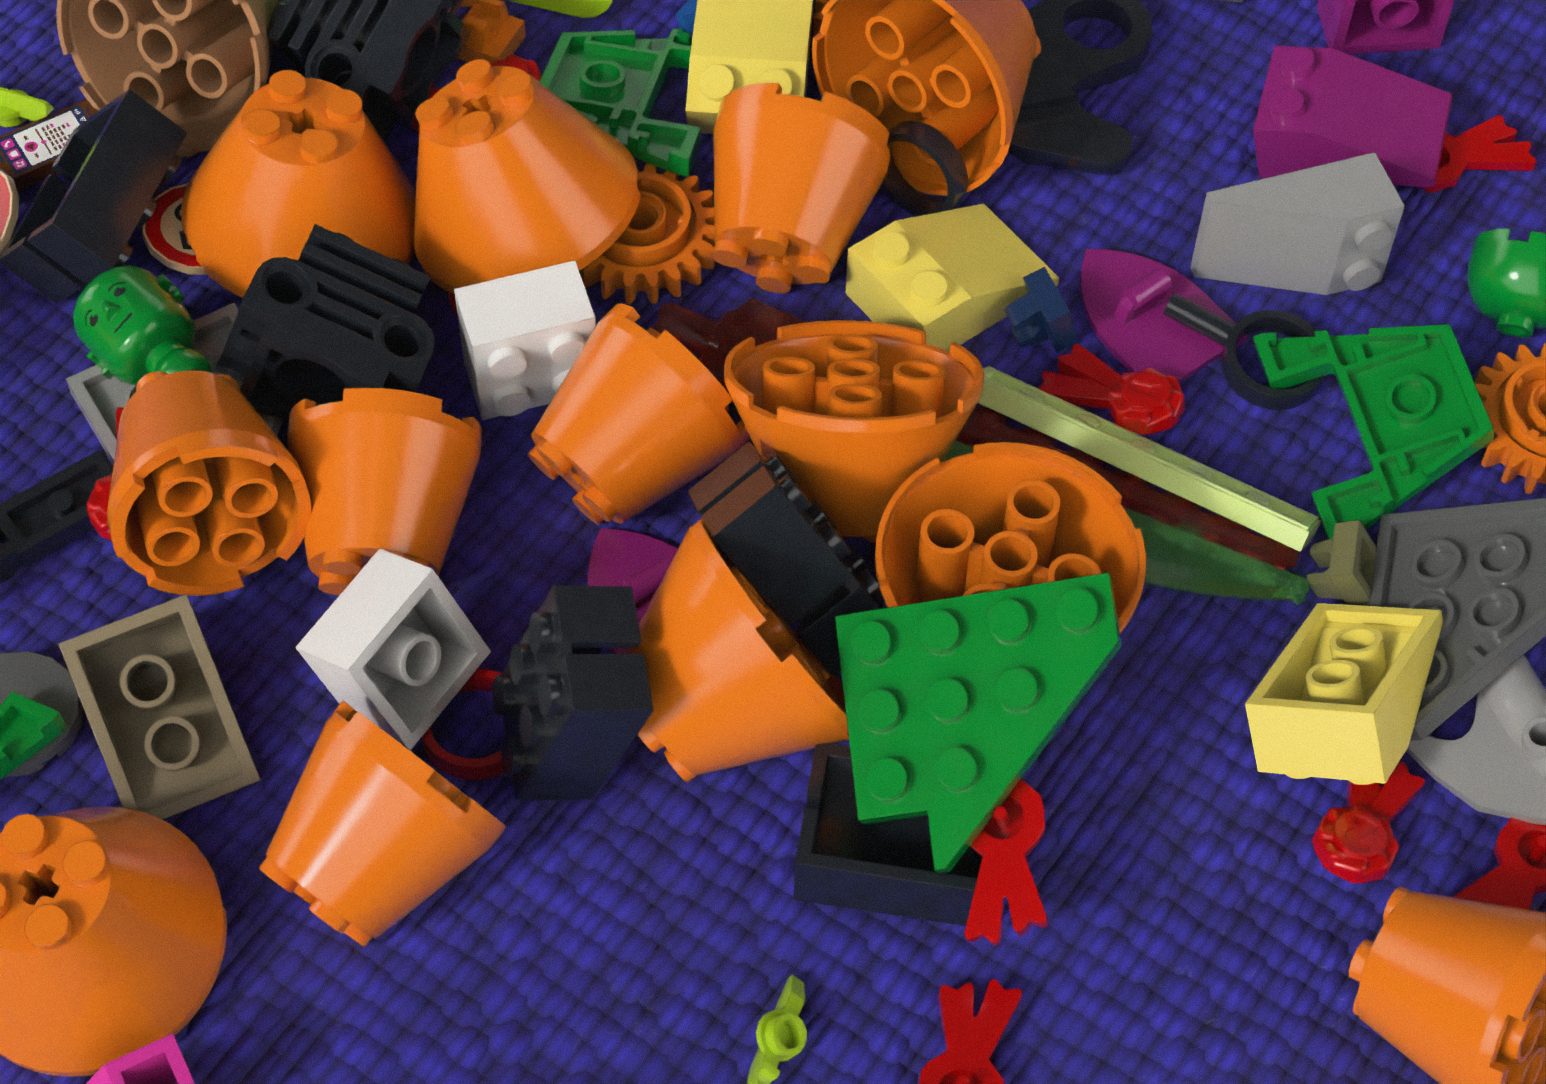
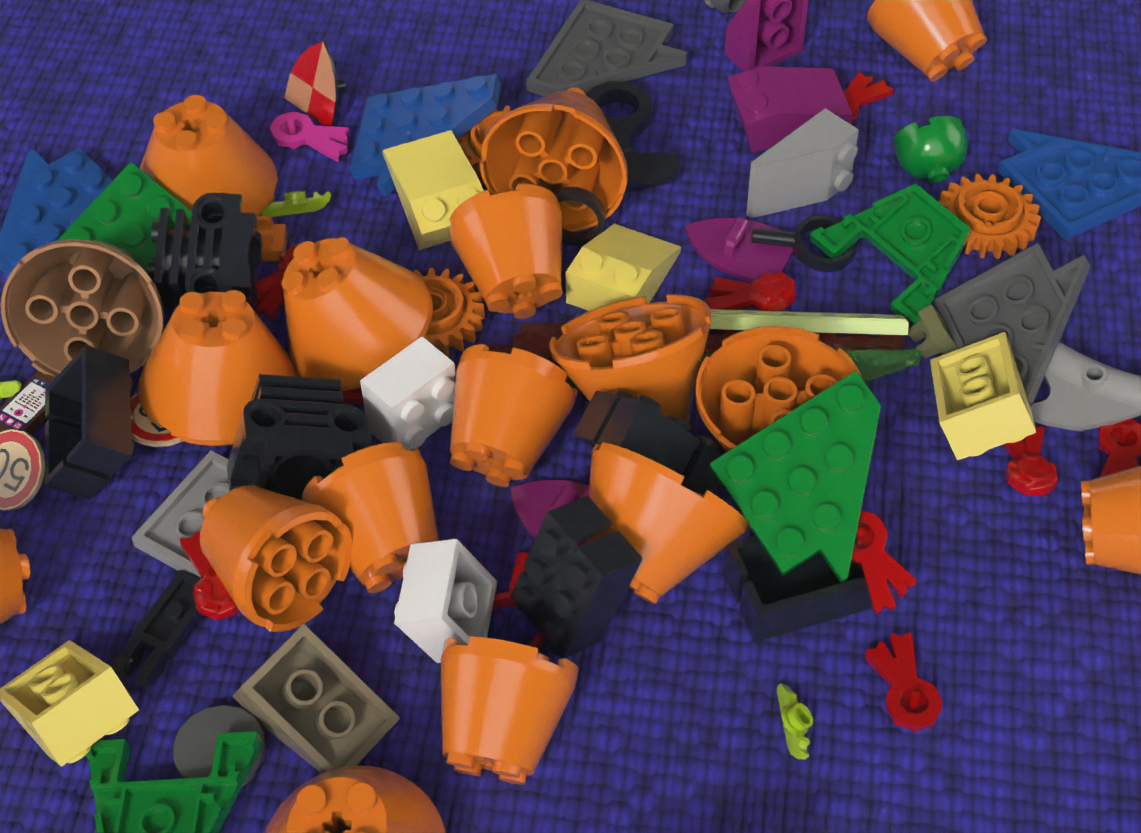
camera: 25 degrees left, 5 degrees down
(136, 325) = (167, 486): green piece -> none
(616, 86) = (372, 231): green wing -> none
(1041, 314) = (688, 267): dark blue tile -> none

